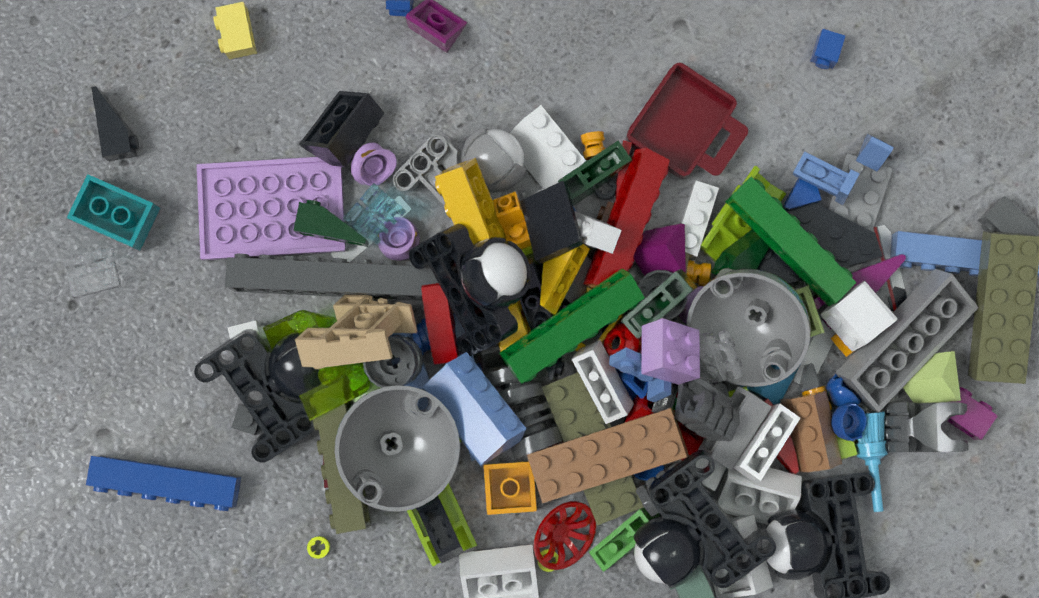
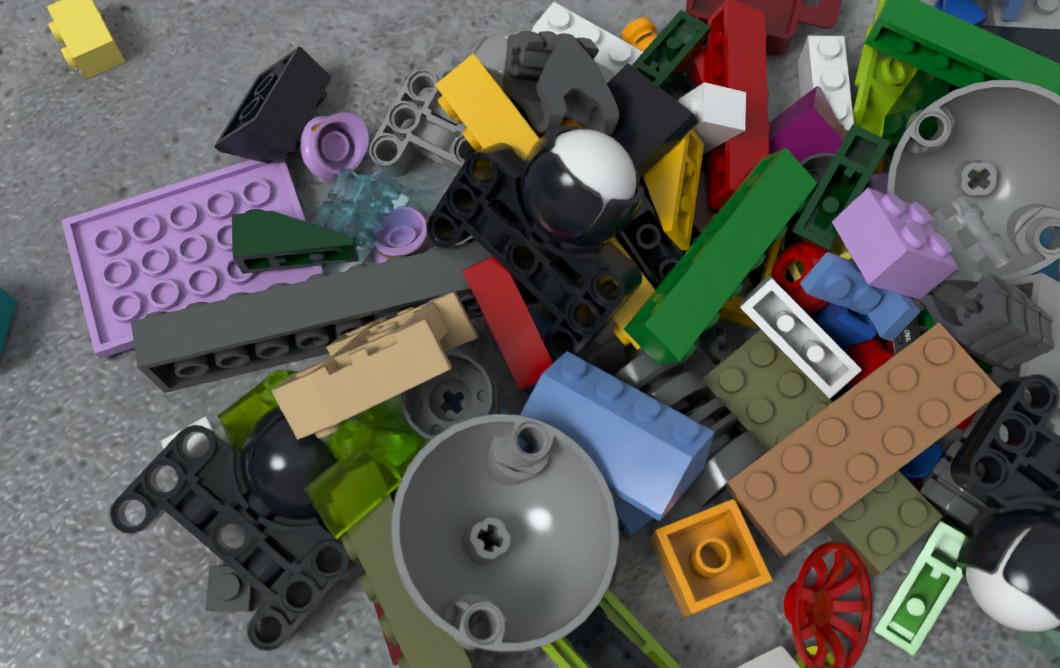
camera: 20 degrees left, 15 degrees down
(421, 336) = (489, 357): blue wheel -> none
(511, 183) = (558, 79): none -> dark grey piece

